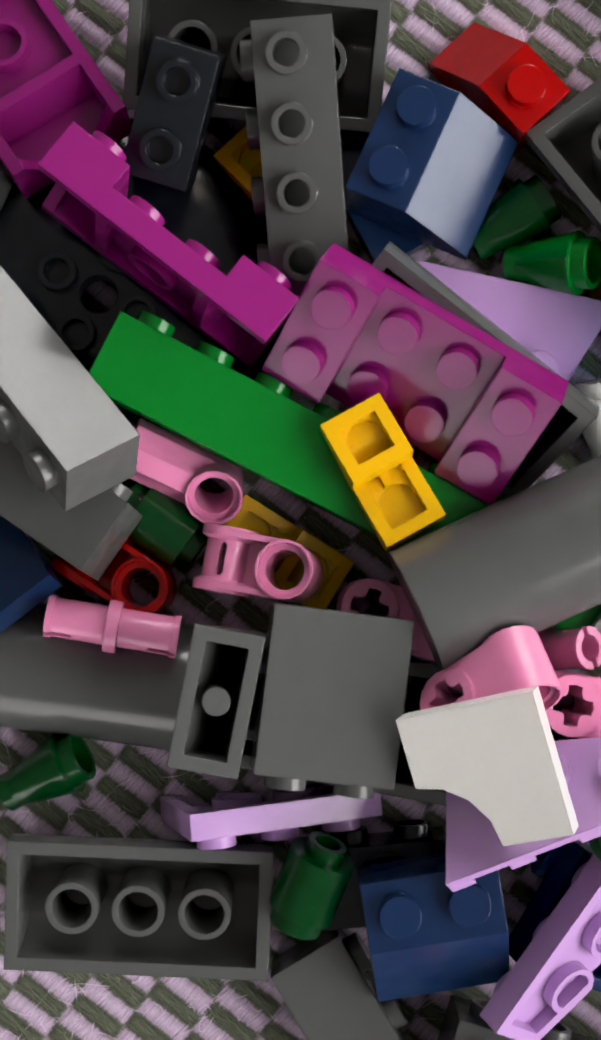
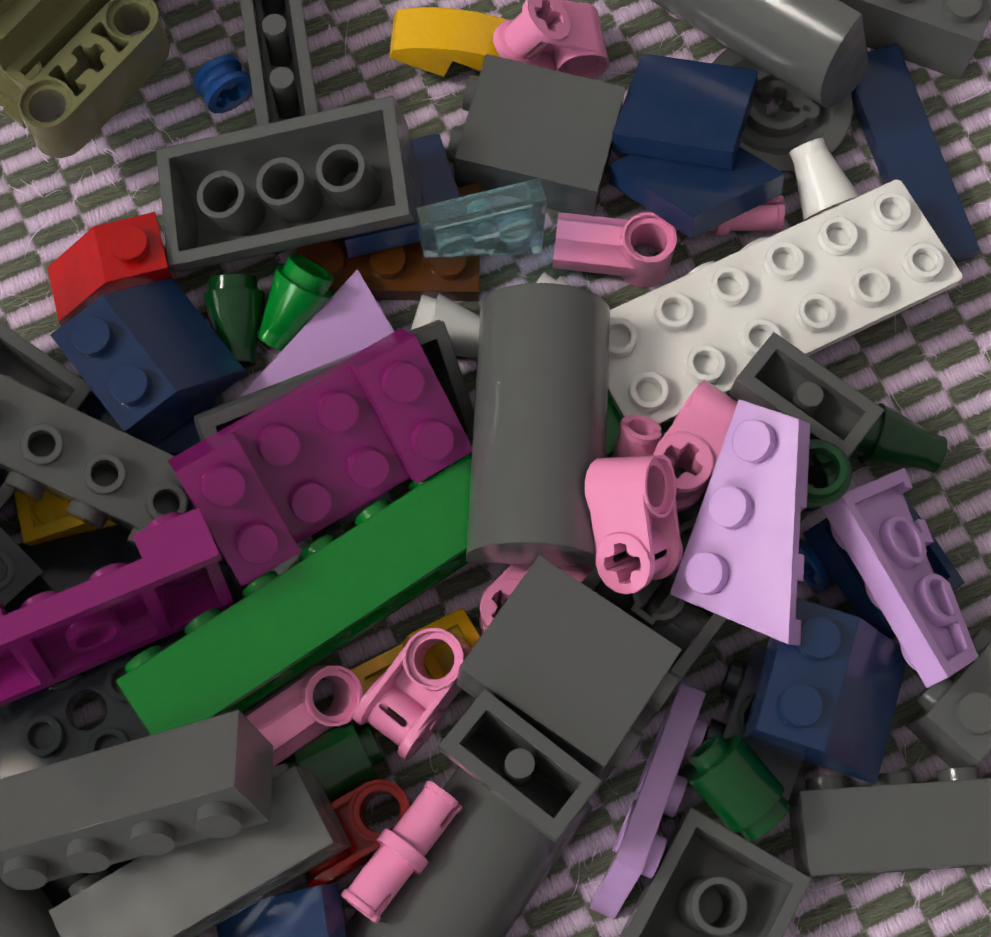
camera: 65 degrees left, 15 degrees down
(382, 472) = (392, 527): yellow slope -> none
(496, 757) = (692, 538): white tile -> none

